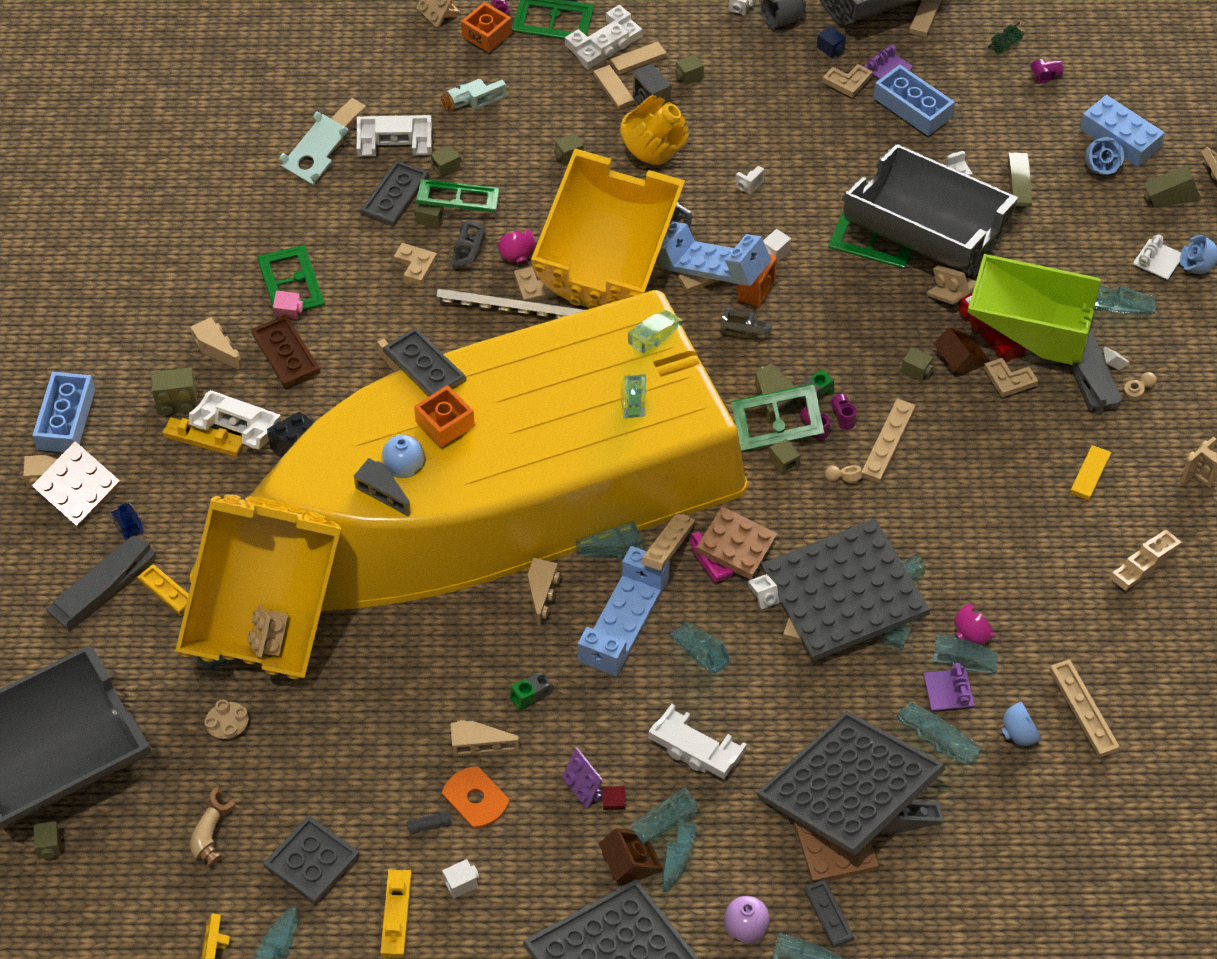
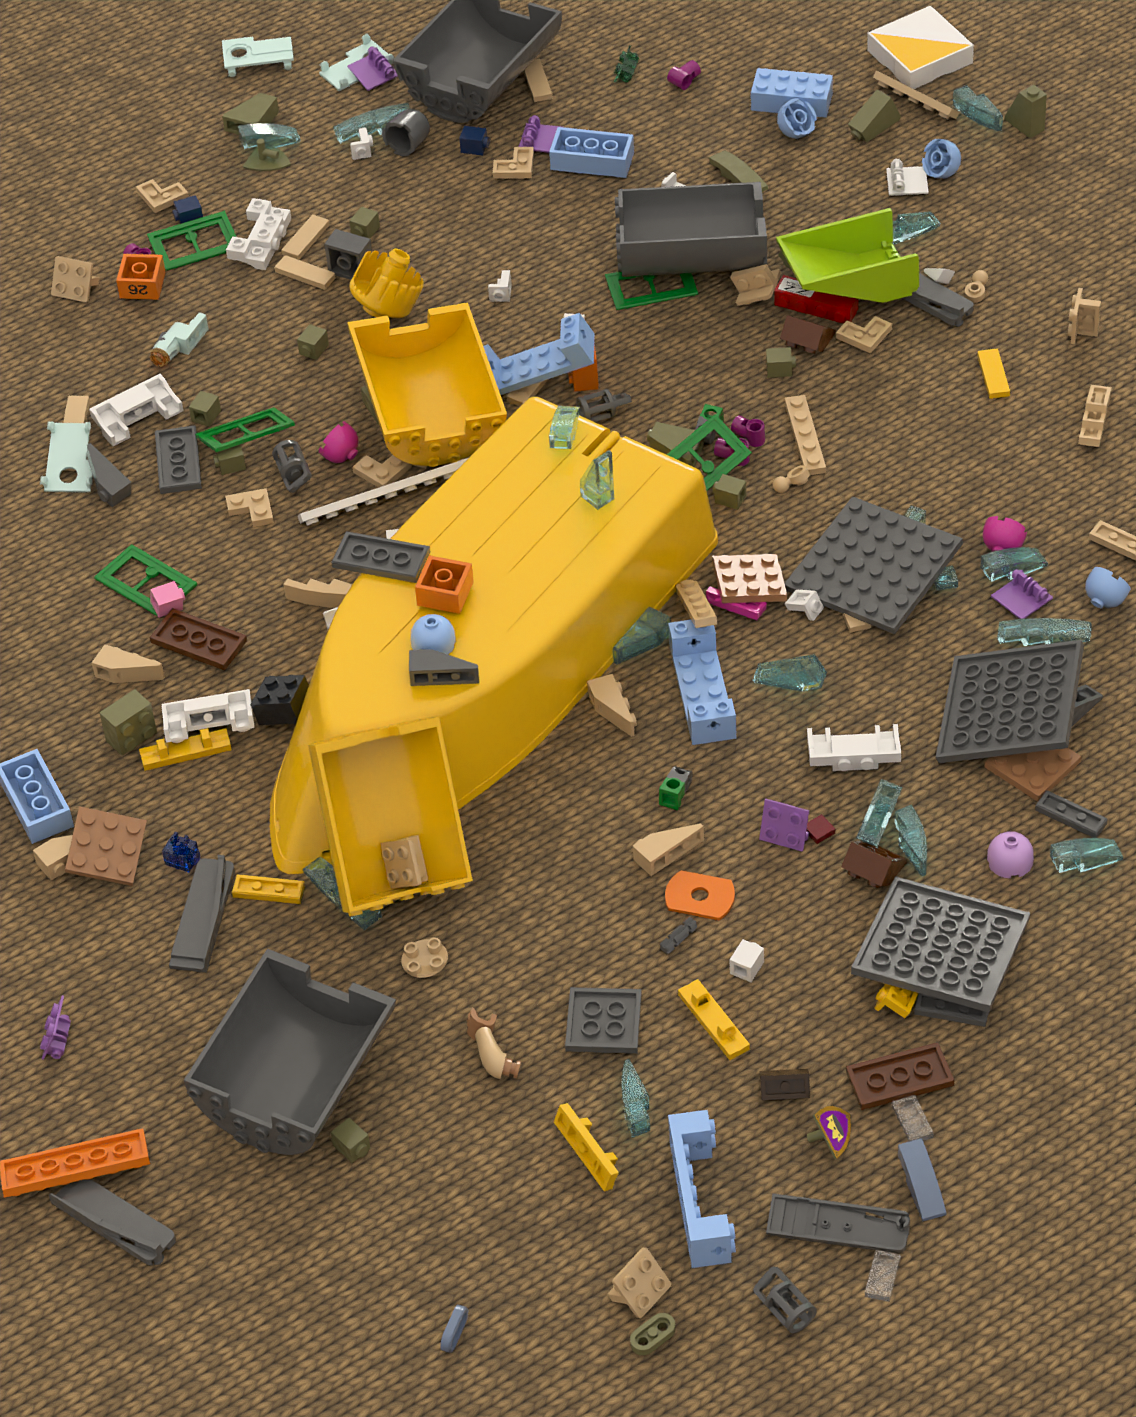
camera: 30 degrees left, 5 degrees down
(325, 182) = (109, 481): none -> dark grey slope

